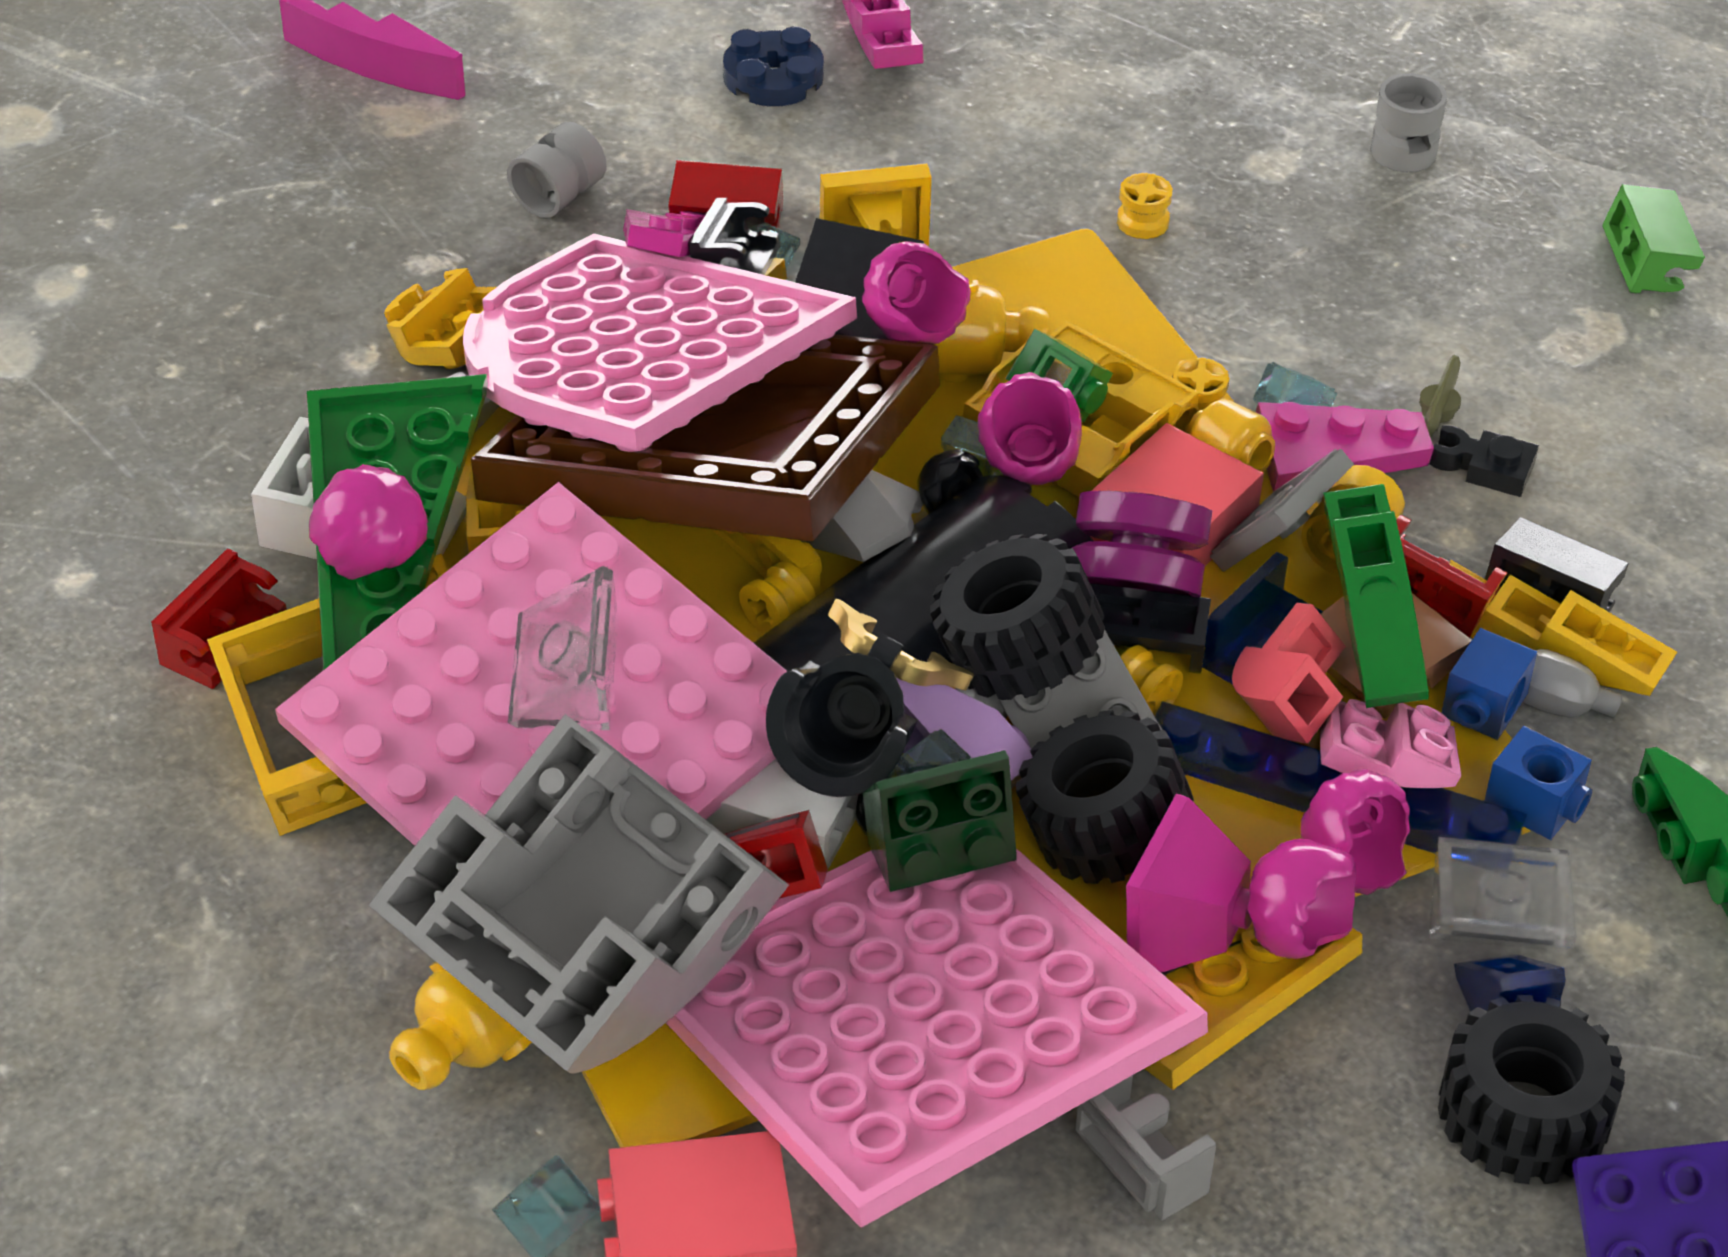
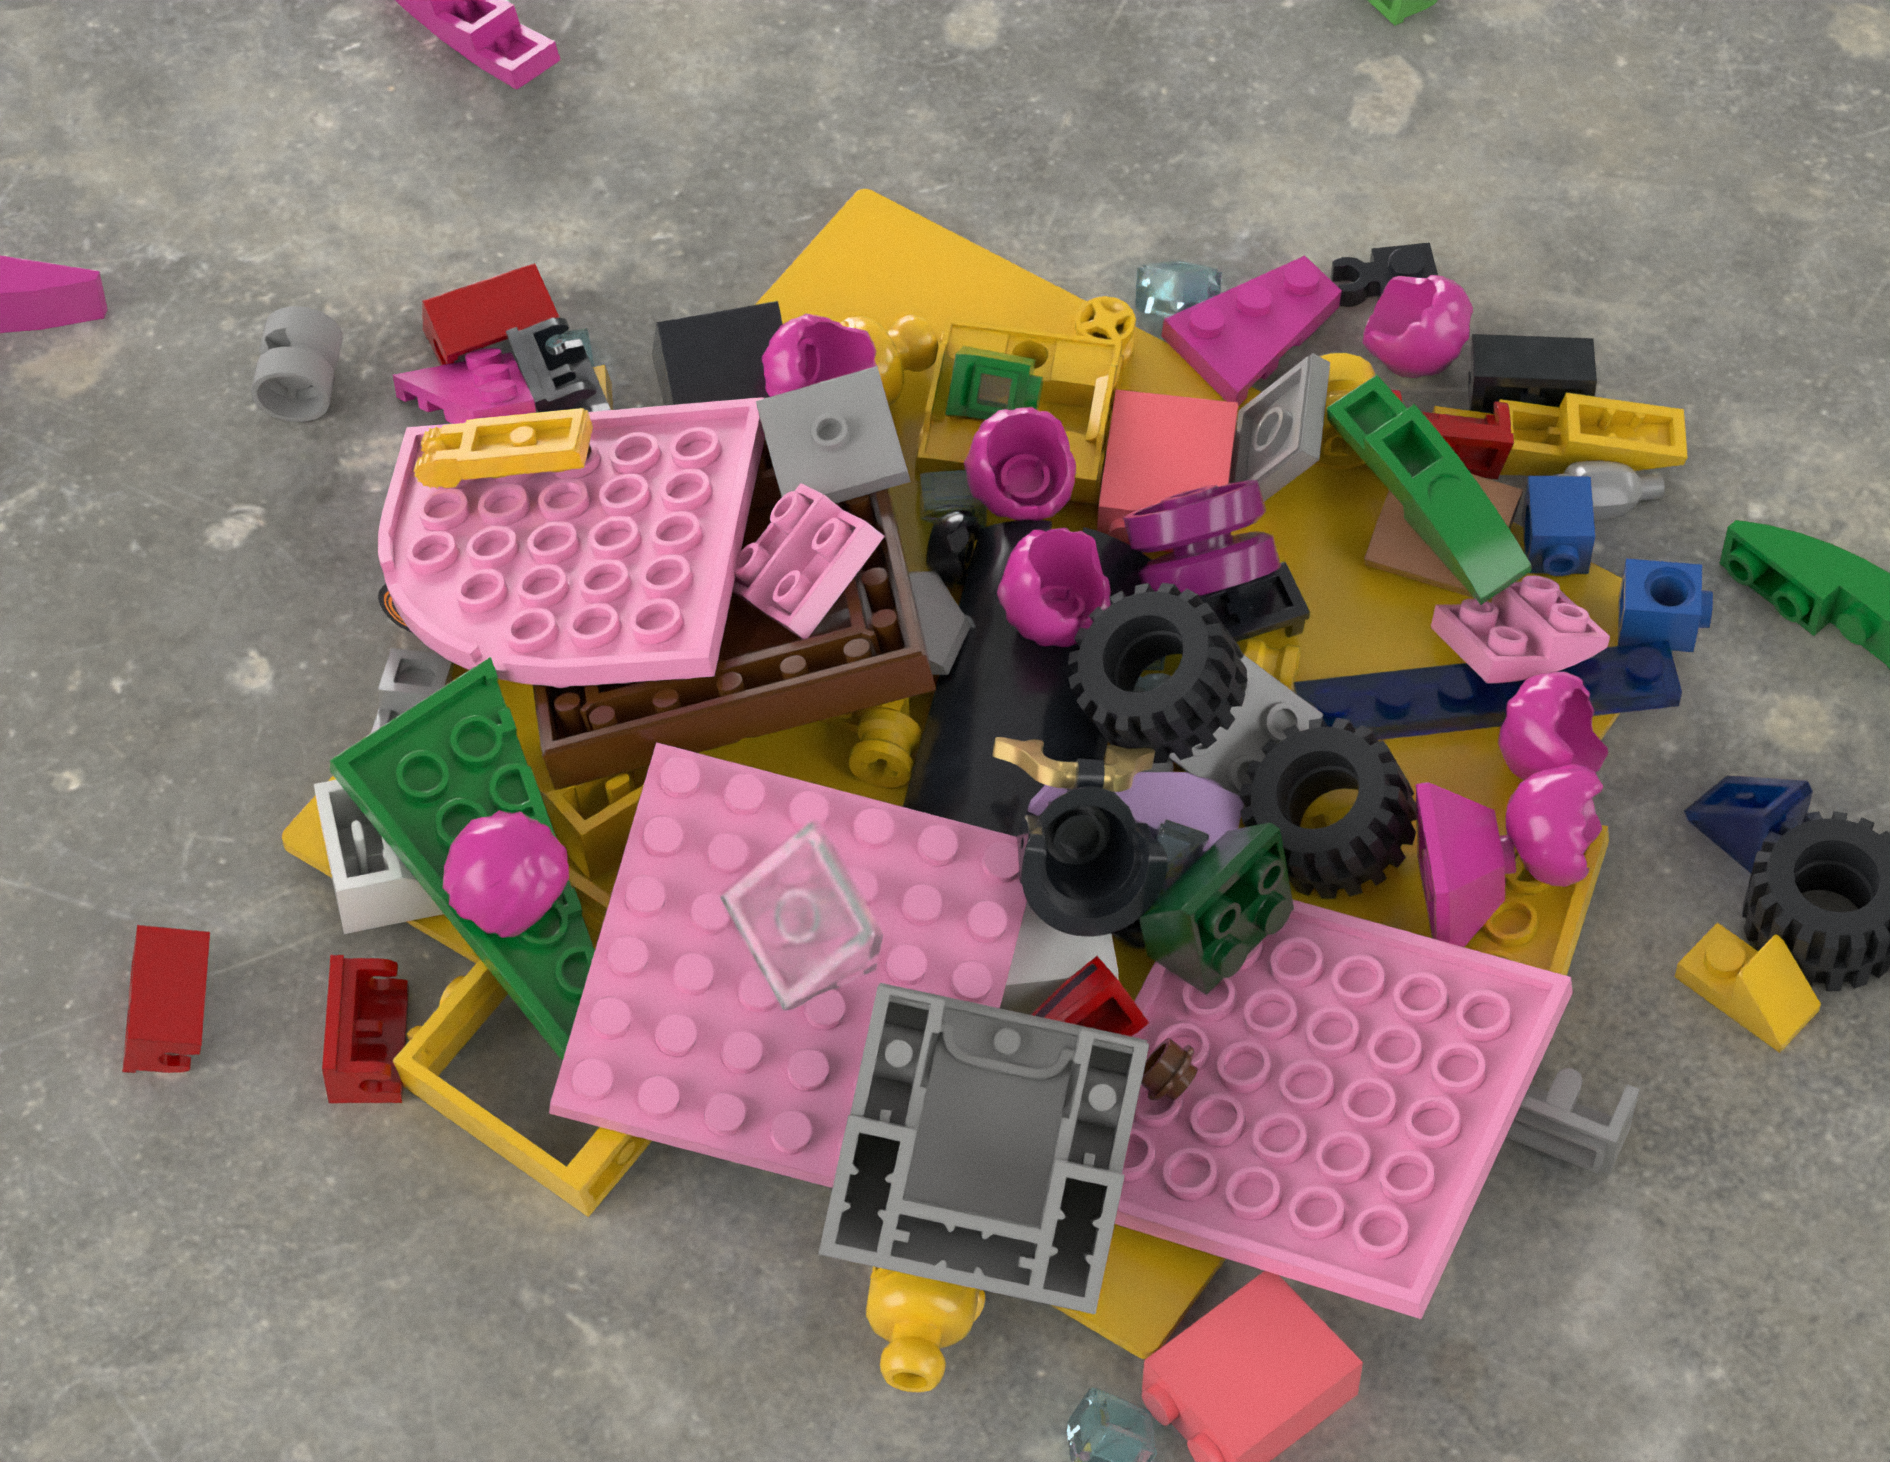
camera: 30 degrees left, 10 degrees up
(91, 528) = (166, 999): none -> red hinge
(432, 322) = (318, 591): yellow slope -> none
(635, 257) = (504, 447): none -> yellow hinge
(766, 414) = (803, 560): none -> bright pink slope
(791, 51) = (400, 105): dark blue plate -> none
(799, 925) = (1168, 1070): none -> reddish brown plate
(876, 340) = (834, 437): none -> light grey plate
(880, 199) = (668, 277): yellow plate -> none
(976, 508) = (1053, 586): none -> dark pink hair
(1144, 206) = (897, 136): yellow wheel -> none
(1235, 432) = (1175, 369): yellow head -> none
(1248, 616) = (1332, 566): panel -> none
(1287, 675) = (1395, 611): coral brick -> none
(1412, 1130) = (1751, 986): none -> yellow slope
(1441, 400) = (1307, 231): olive piece -> none
(1477, 495) = (1419, 325): none -> dark pink hair
(1502, 895) = (1699, 732): clear slope -> none

